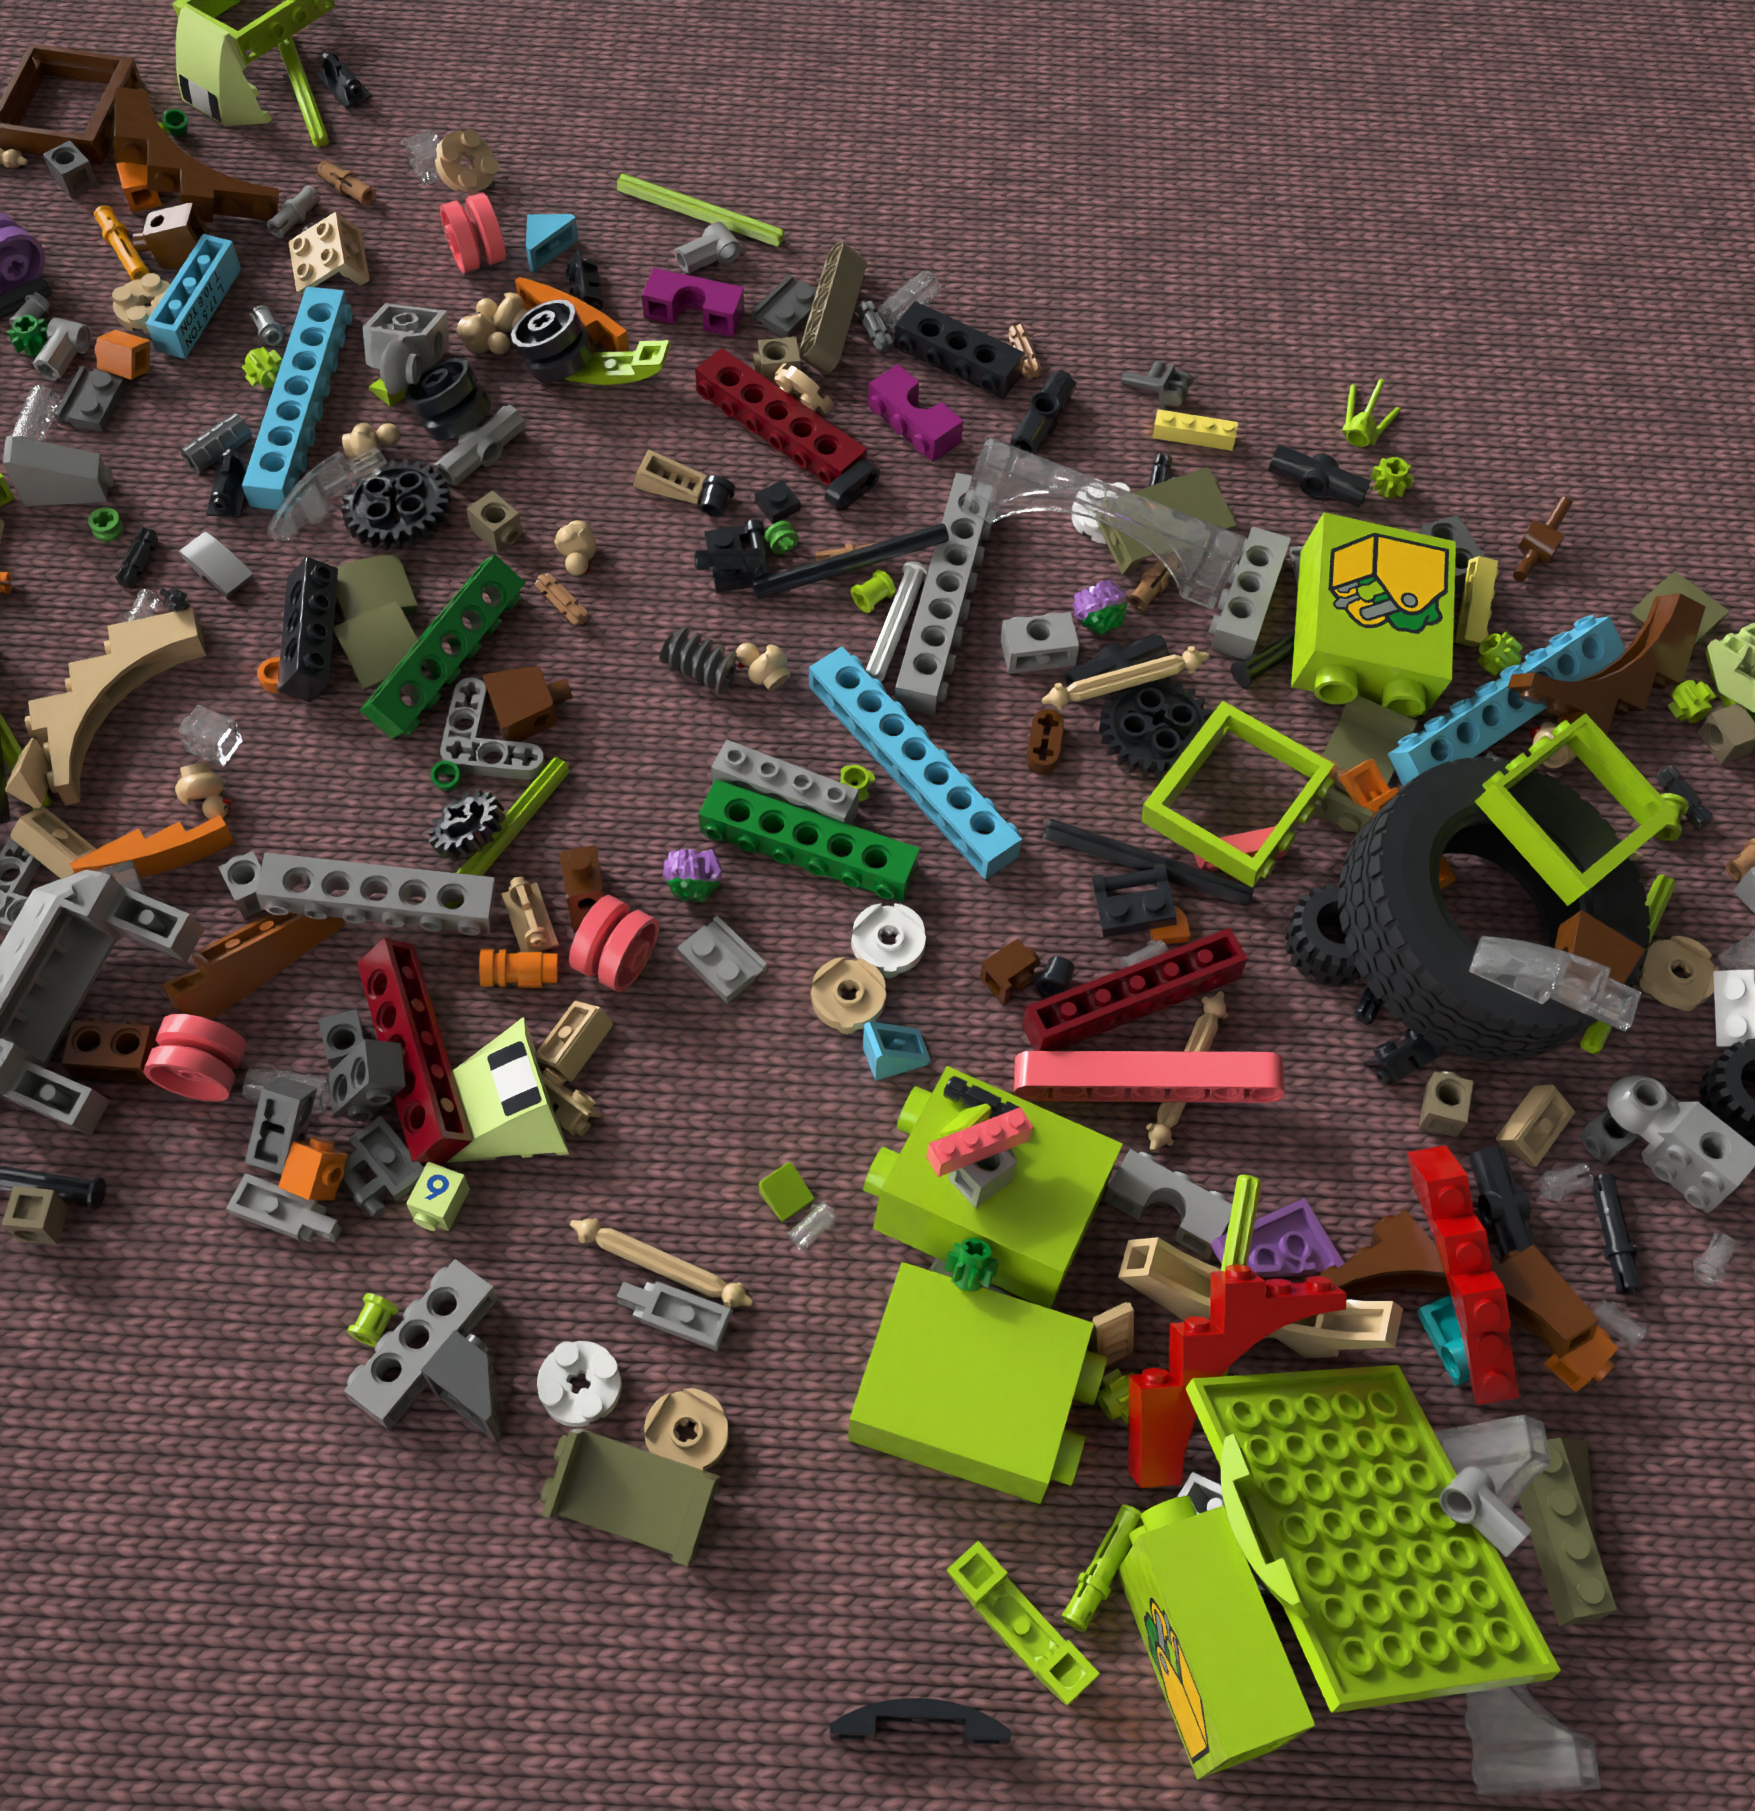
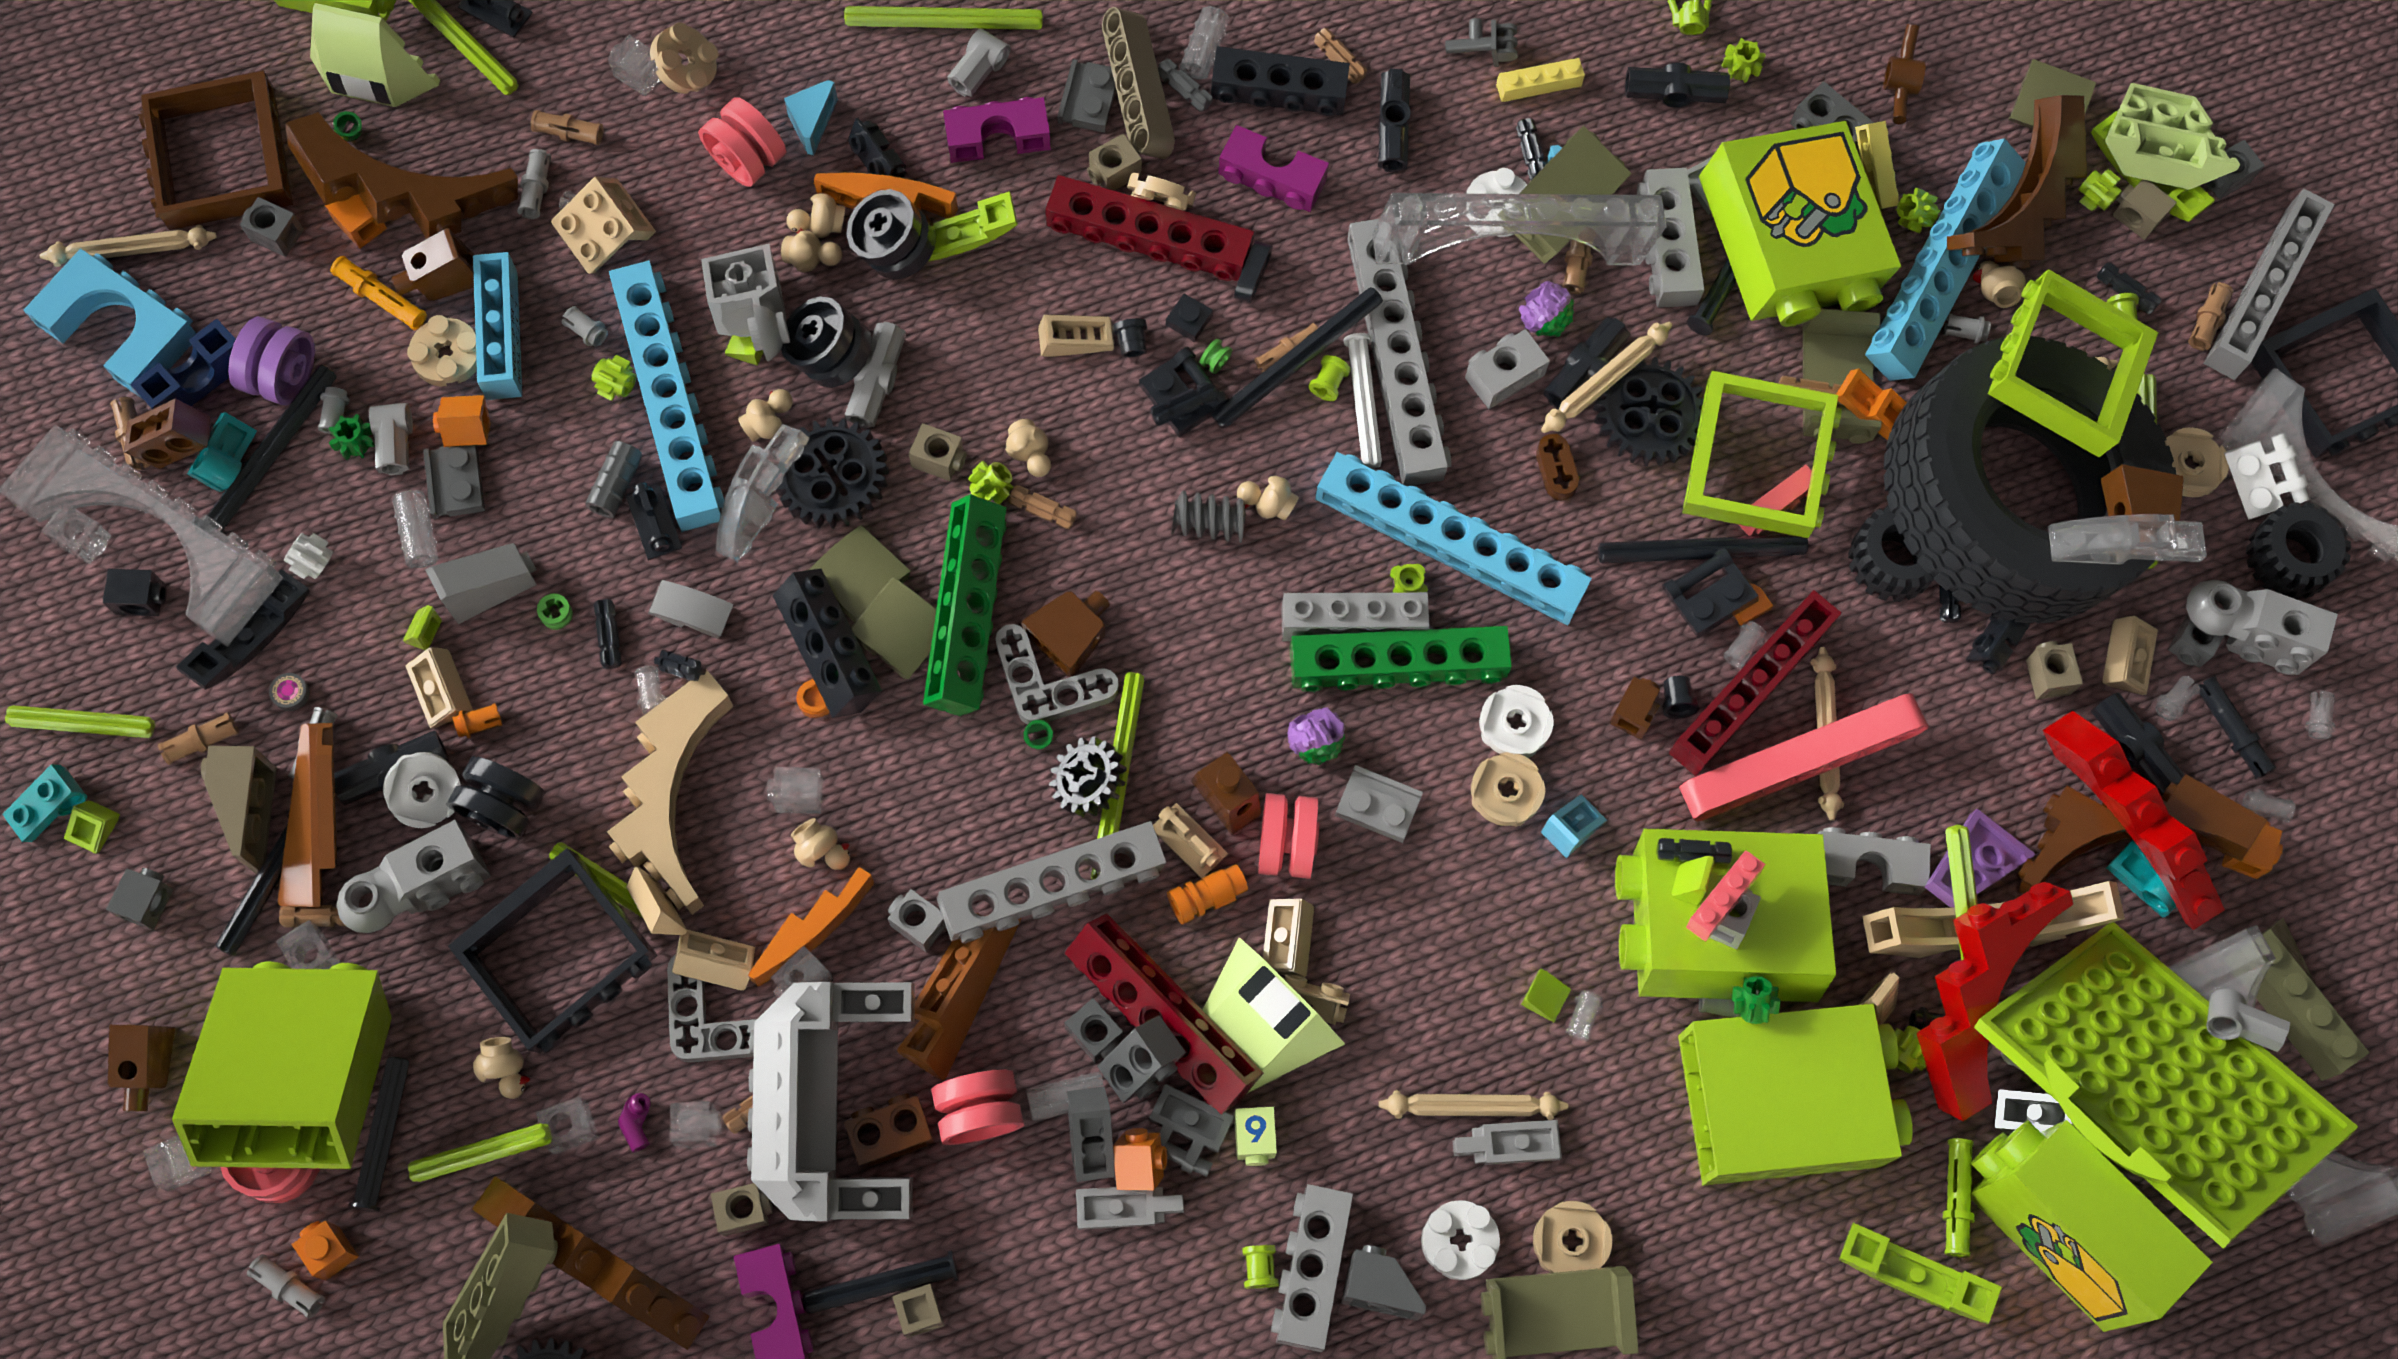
camera: 25 degrees left, 10 degrees up
(526, 559) = (991, 482): none -> lime gear

